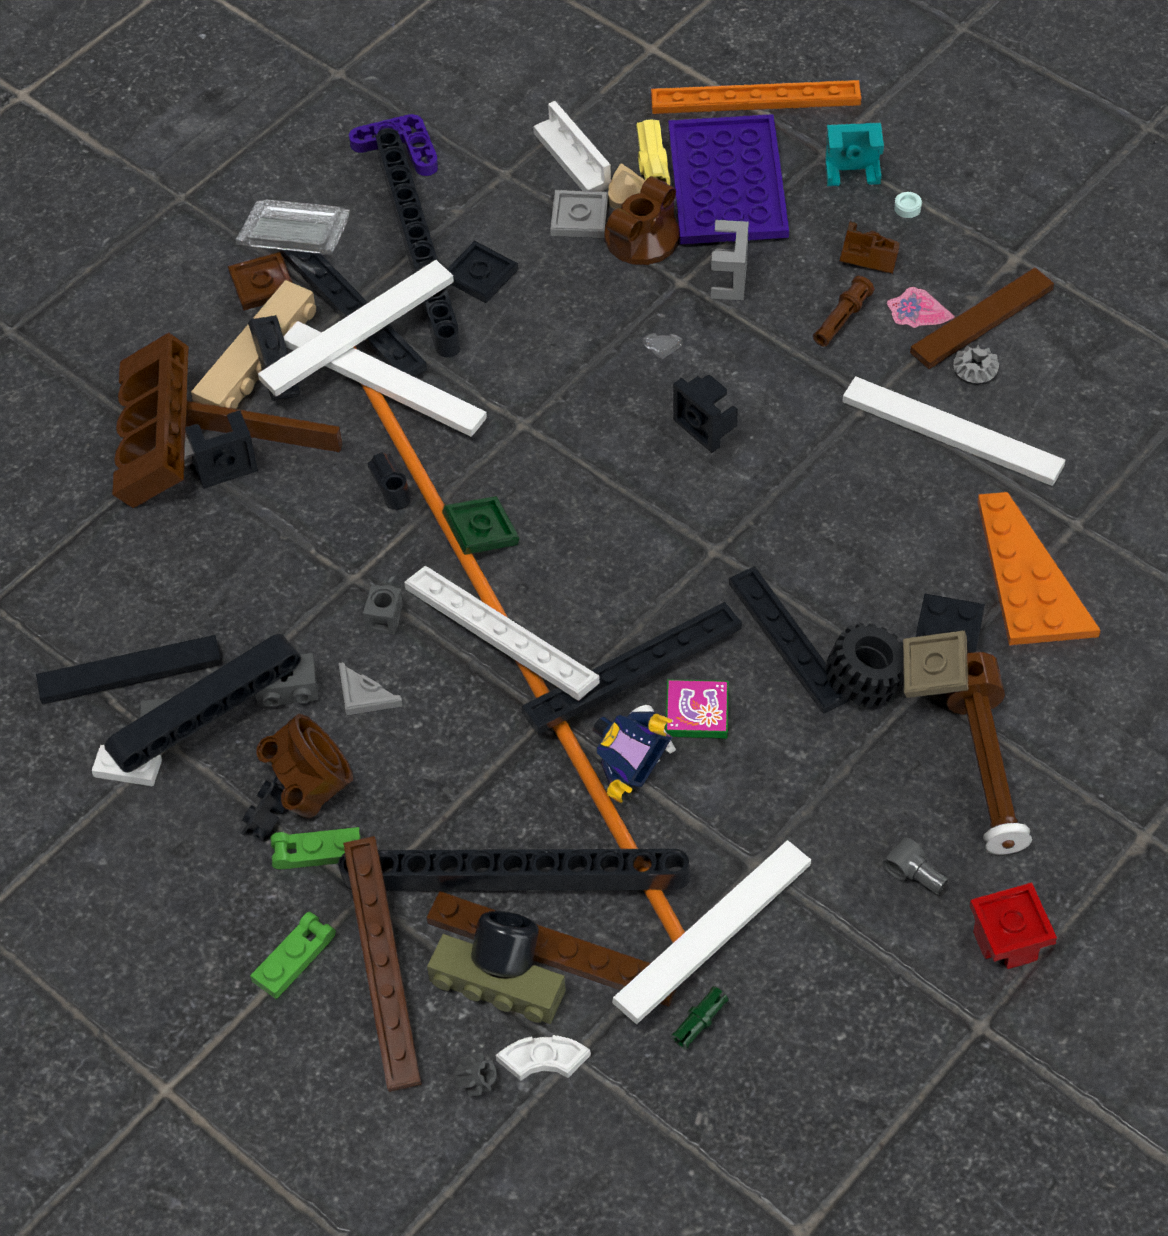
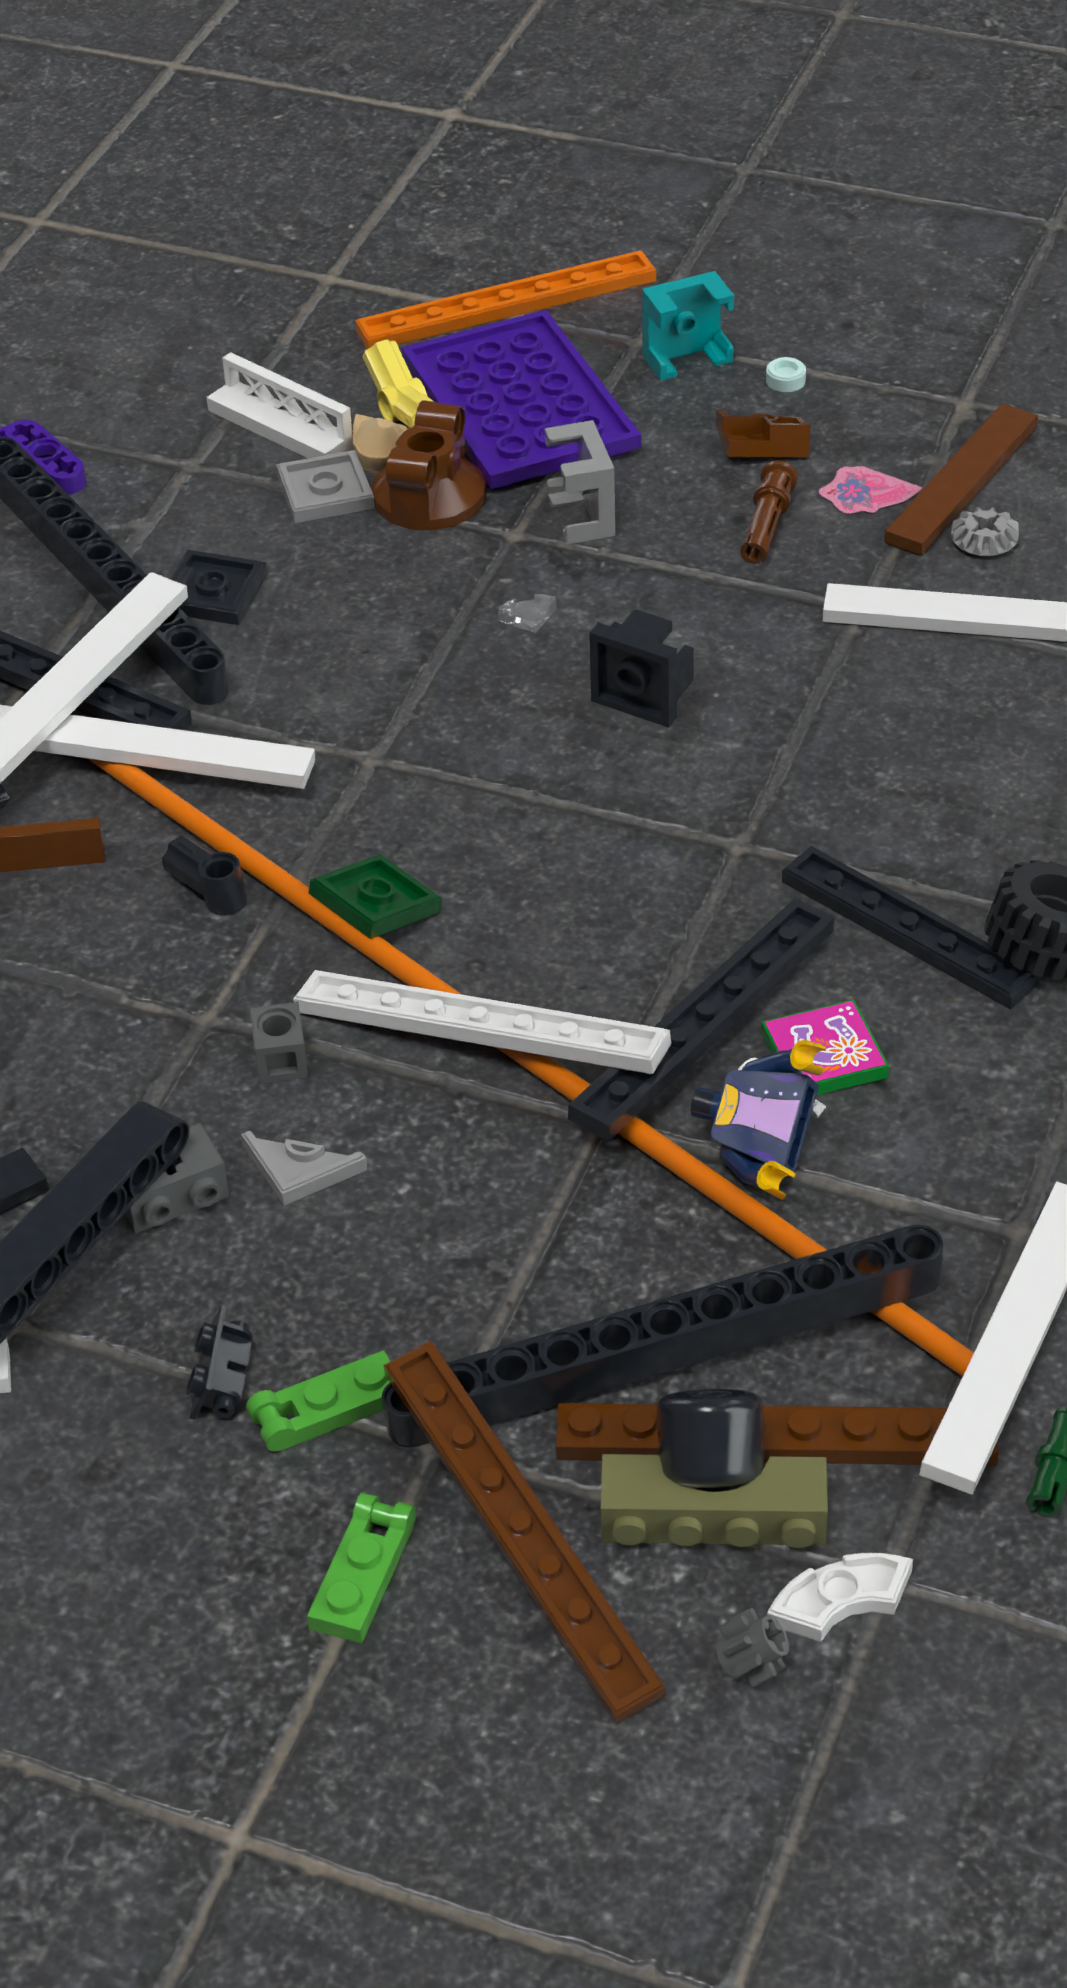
camera: 20 degrees left, 10 degrees down
(305, 764) = (258, 1281): reddish brown piece -> none

